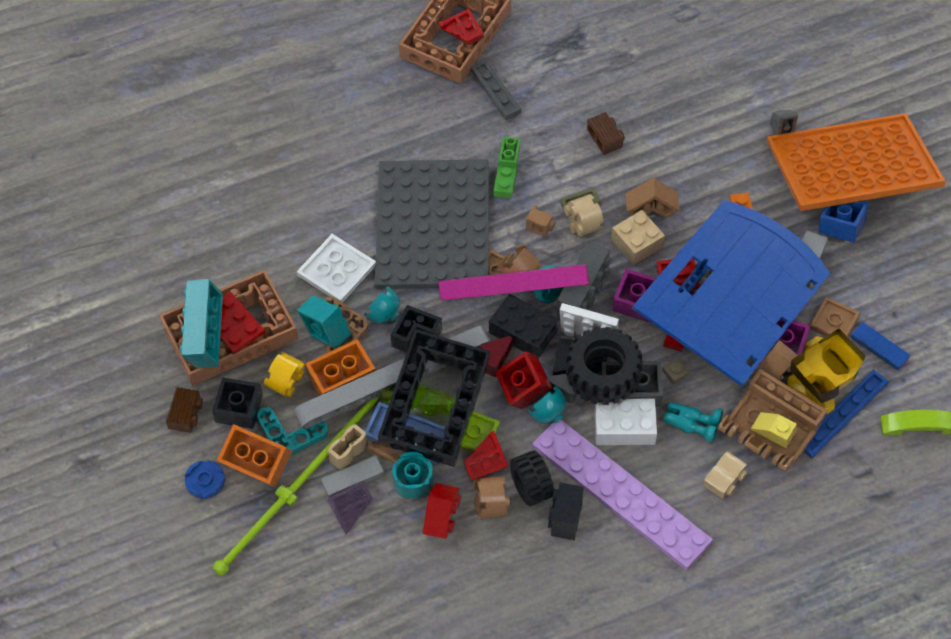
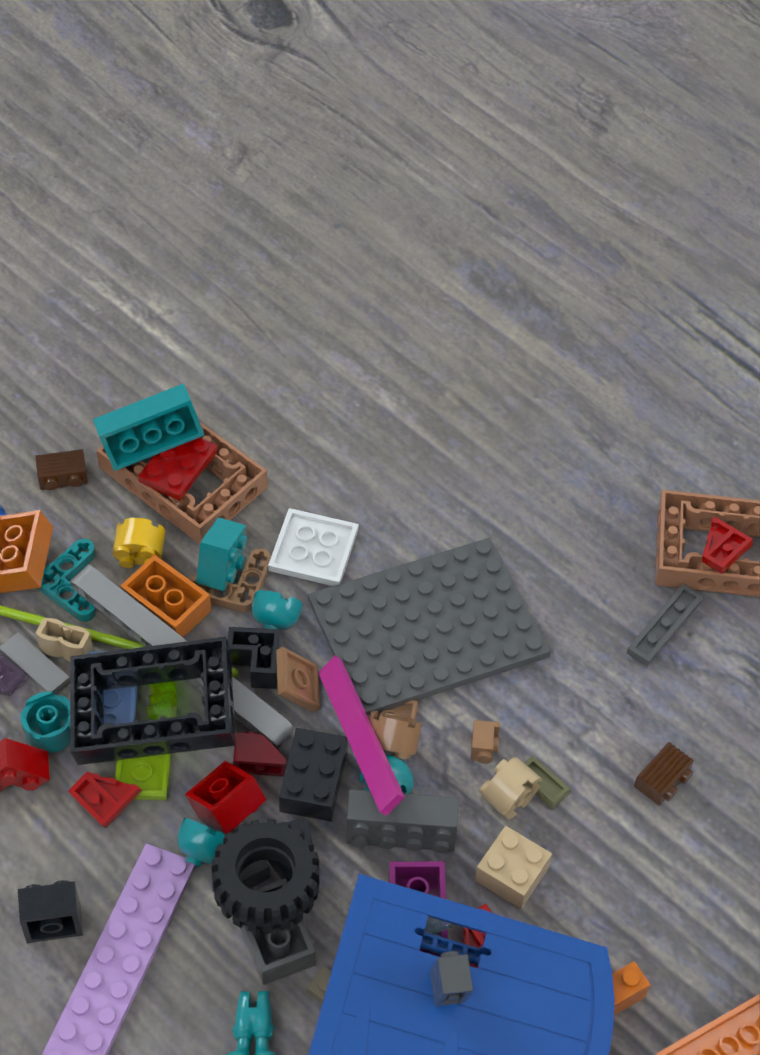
camera: 65 degrees right, 5 degrees down
(237, 403) = (84, 512): black brick -> none
(447, 310) = (297, 679): none -> medium nougat tile
(490, 497) = (43, 817): medium nougat brick -> none
(507, 167) = (551, 678): bright green slope -> none
(532, 477) = (82, 851): black tyre -> none
(577, 320) = (333, 844): white plate -> none
(626, 422) = (215, 947): white brick -> none
(652, 197) = (583, 865): medium nougat brick -> none
(725, 280) = (451, 979): none -> dark grey brick

